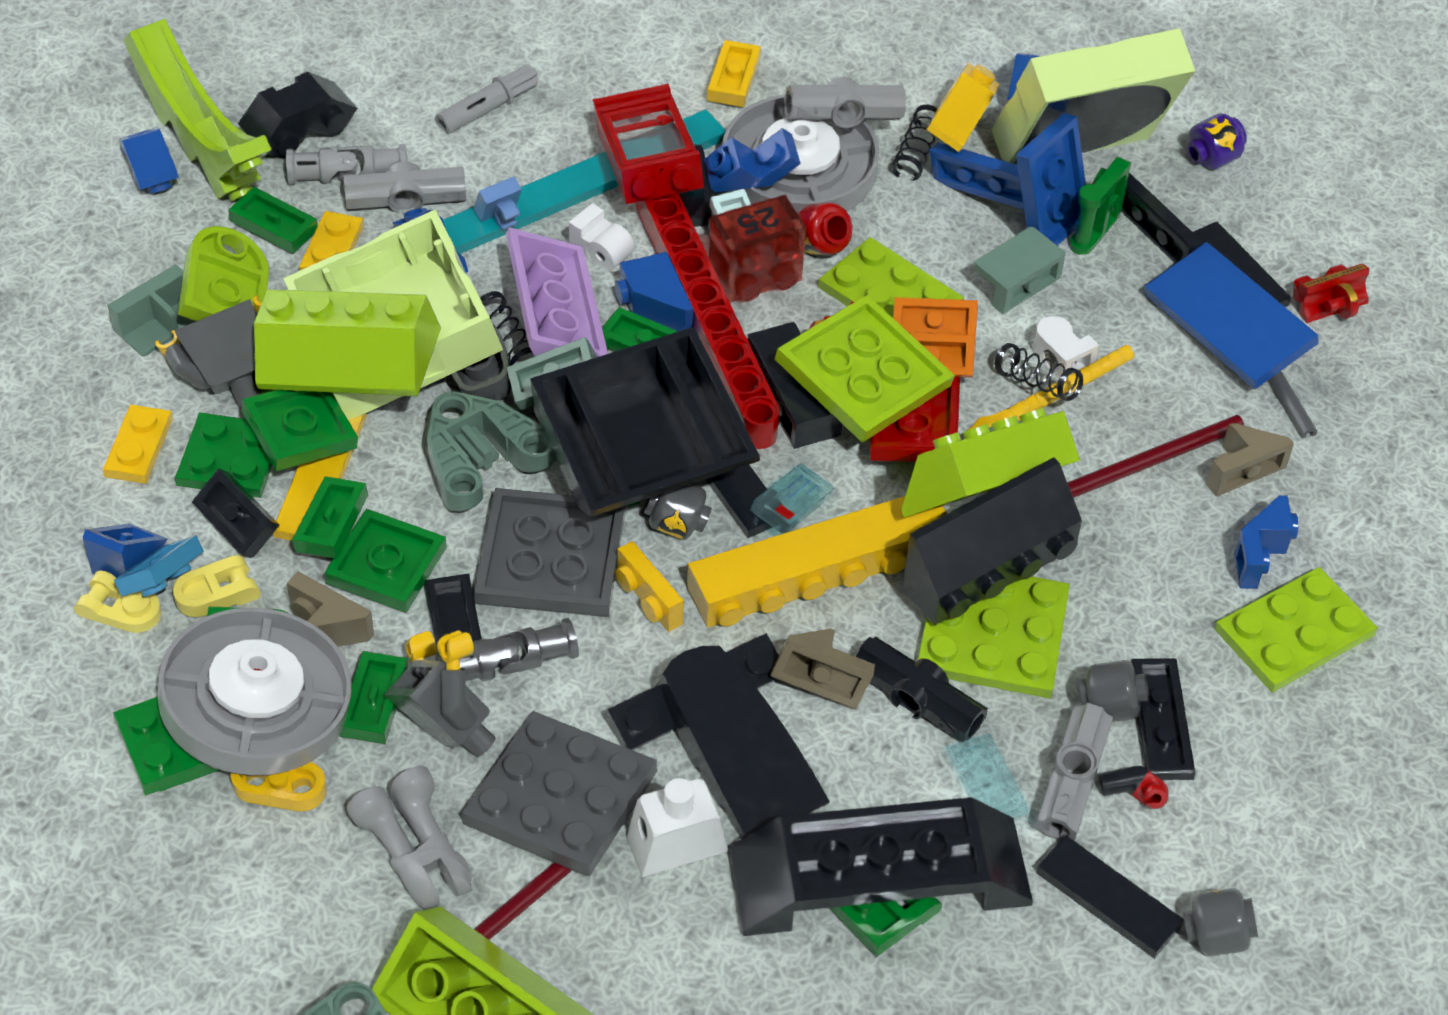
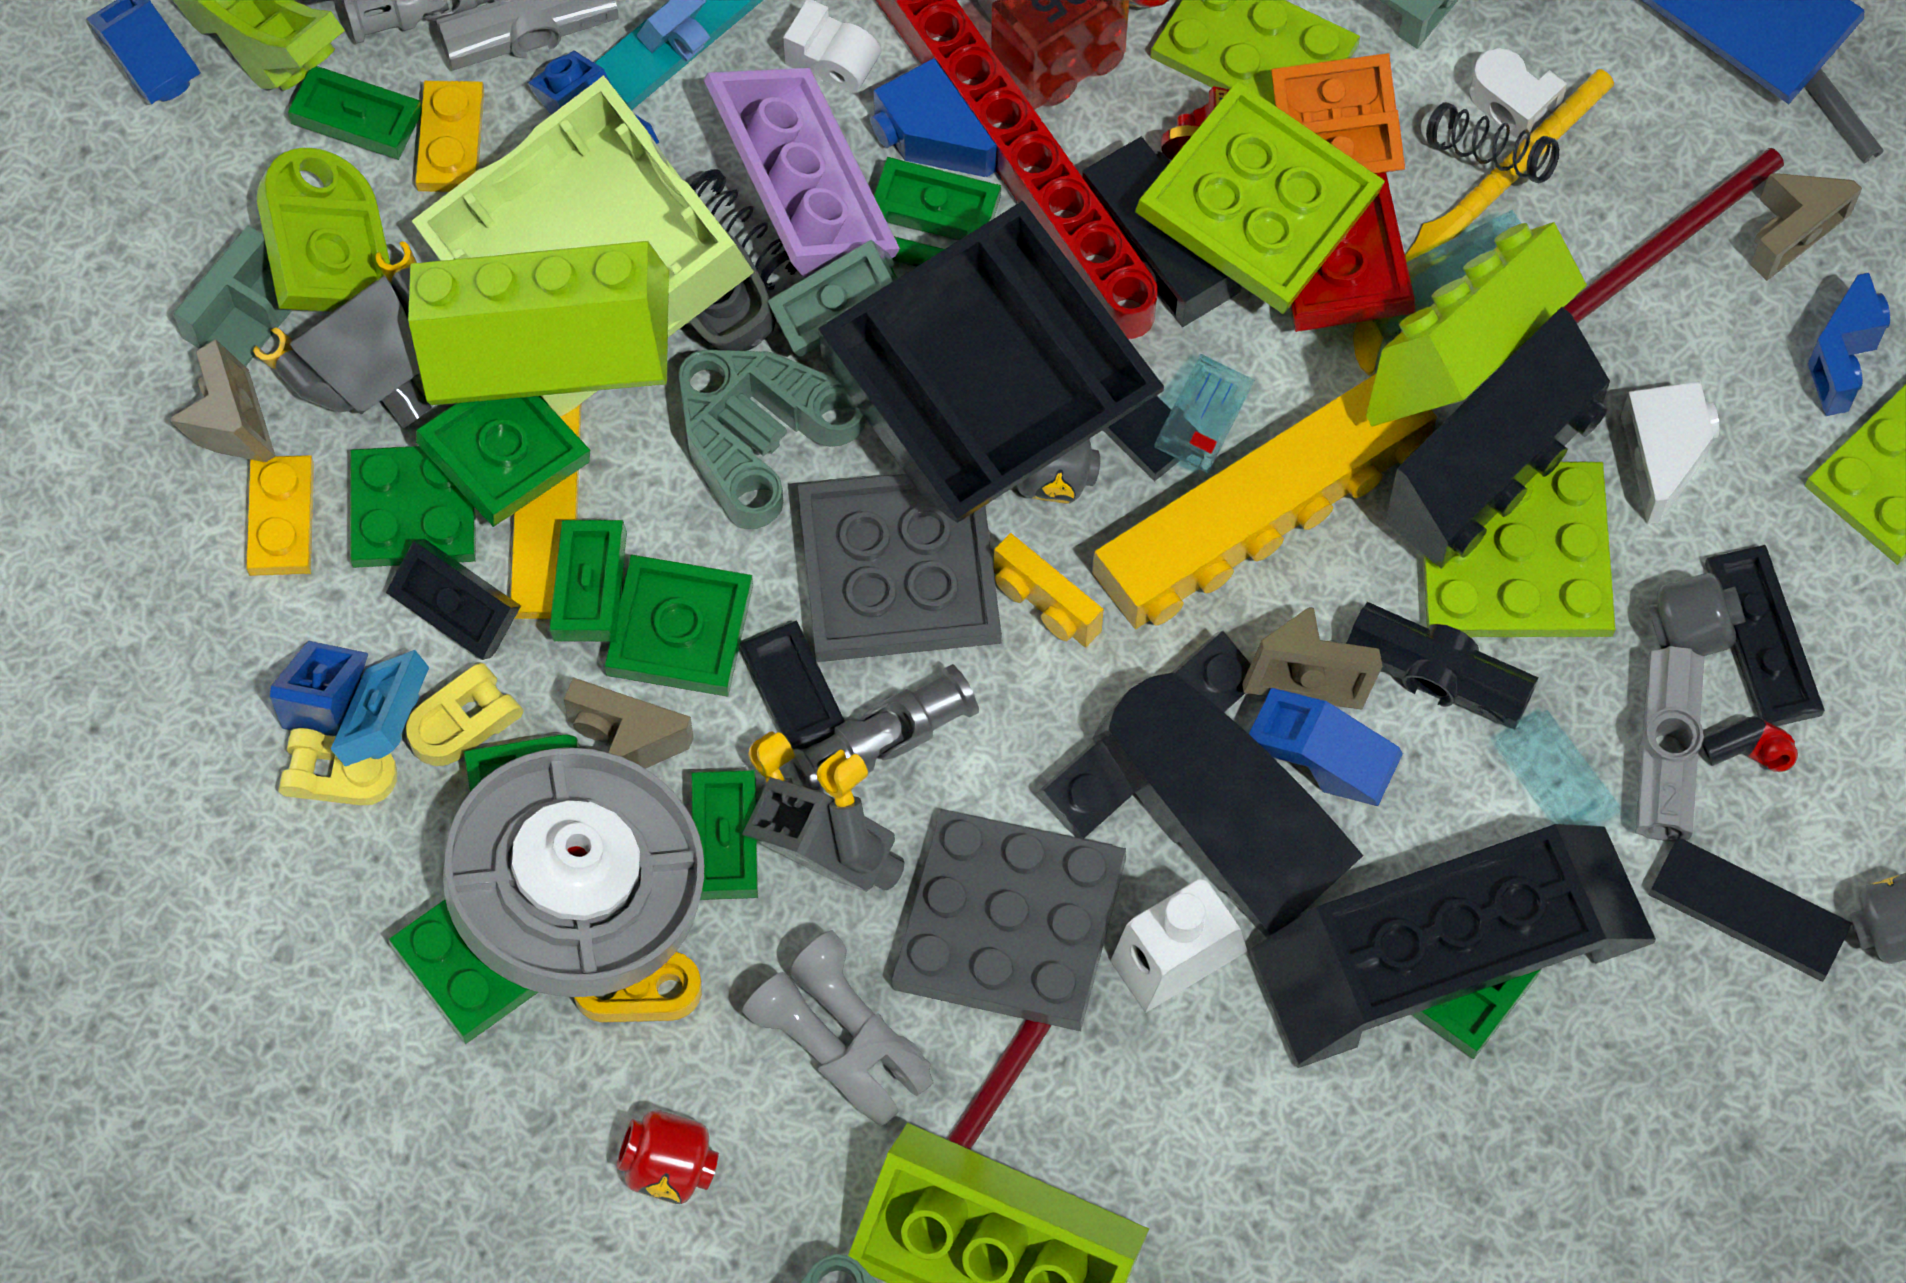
camera: 10 degrees left, 15 degrees up
(124, 372) = (230, 413): none -> dark tan slope
(261, 896) = (667, 1157): none -> red head
(827, 723) = (1337, 748): none -> blue slope
(1120, 578) = (1667, 441): none -> white slope

